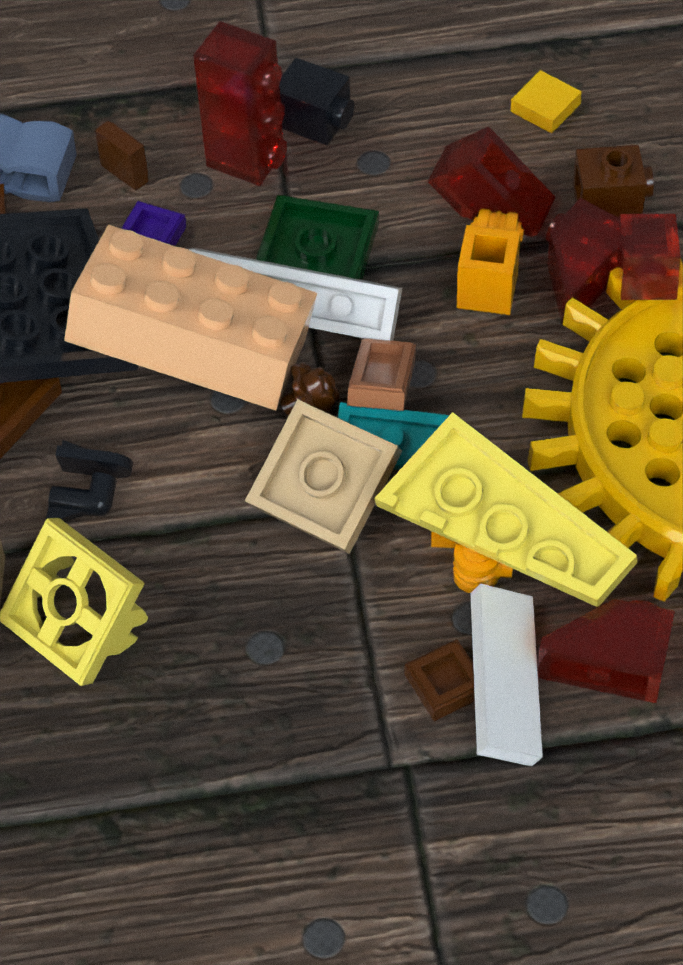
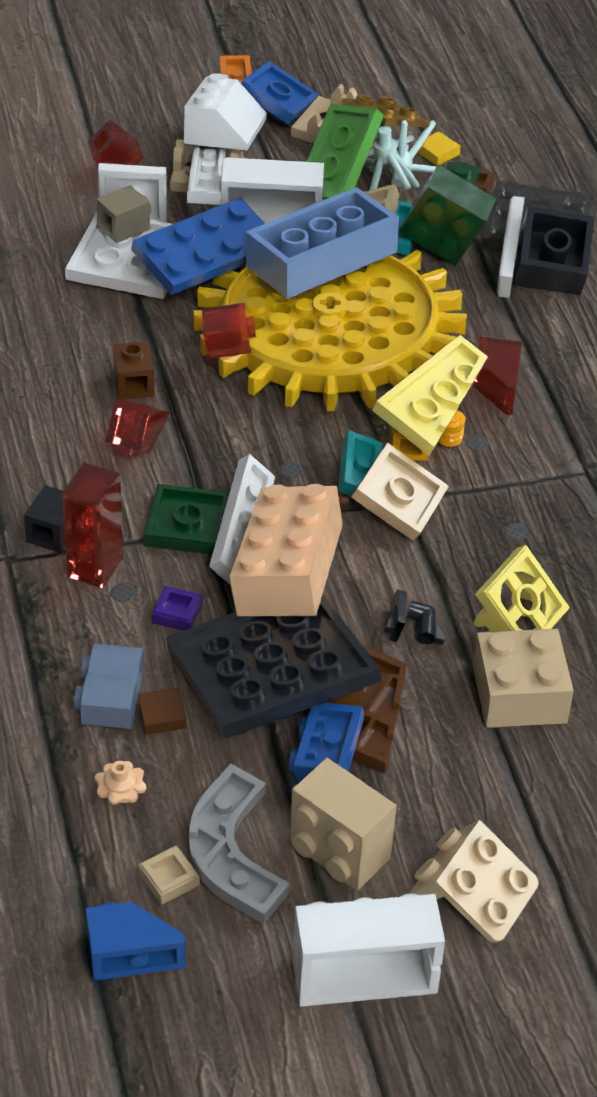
camera: 100 degrees left, 10 degrees down
(122, 155) = (110, 620): reddish brown tile -> none
(382, 374) = (314, 467): nougat tile -> none
(442, 679) = (525, 447): reddish brown tile -> none
(489, 262) = (216, 423): light orange brick -> none
(505, 675) = (522, 417): white tile -> none
(546, 101) = (45, 406): yellow tile -> none
(581, 253) = (203, 382): clear red slope -> none

